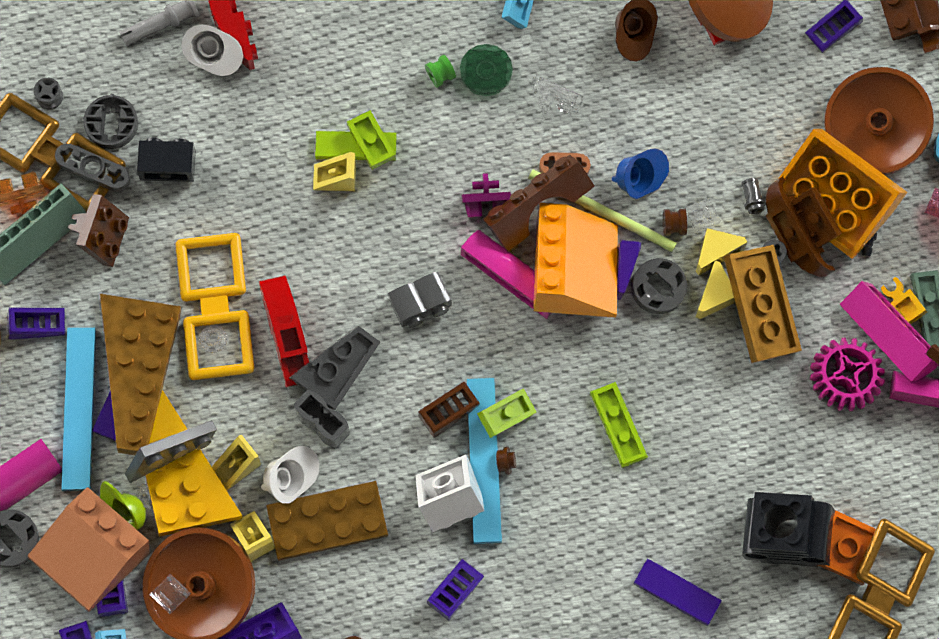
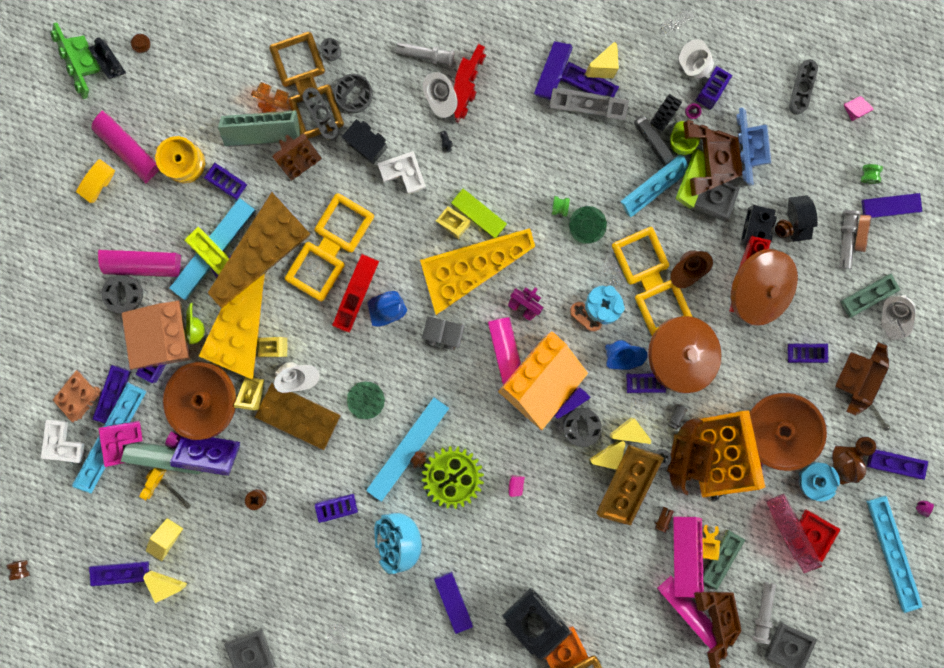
camera: 35 degrees right, 15 degrees up
(77, 411) = (207, 249): none -> neon yellow tile
(169, 449) = (237, 317): dark grey wing -> none
(170, 593) = (180, 394): clear tile -> none
(235, 155) = (406, 167): none -> white plate
(259, 98) = (446, 143): none -> black piece
(316, 415) = (334, 354): dark grey brick -> none
(332, 322) = (386, 308): none -> blue piece
(337, 366) = (367, 335): dark grey wing -> none
(371, 139) = (488, 218): lime plate -> none
(387, 217) = (464, 269): none -> yellow wing
(396, 451) = (365, 400): none -> clear green tile
(449, 493) = (372, 454): white slope -> none
(453, 417) = (394, 404): reddish brown slope -> none
(506, 413) = (439, 434): lime plate -> none
(511, 220) = (574, 328): reddish brown arch -> none
(567, 560) = (404, 542): none -> medium azure cylinder
(578, 125) = (601, 314): none -> medium azure plate
(583, 456) = (463, 491): none -> lime gear
(606, 76) = (649, 278): none -> yellow bar
(618, 425) = (496, 487): lime tile -> none
(621, 220) = (571, 325): yellowish green bar -> none
(638, 406) = (516, 485): none -> dark pink slope
(674, 222) = (620, 398): reddish brown wheel -> none
(700, 166) = (629, 379): none -> dark purple slope
(704, 123) = (684, 354): none -> dark orange dish
(832, 316) = (663, 521): none -> reddish brown pin
(840, 353) = (643, 566): dark pink gear -> none

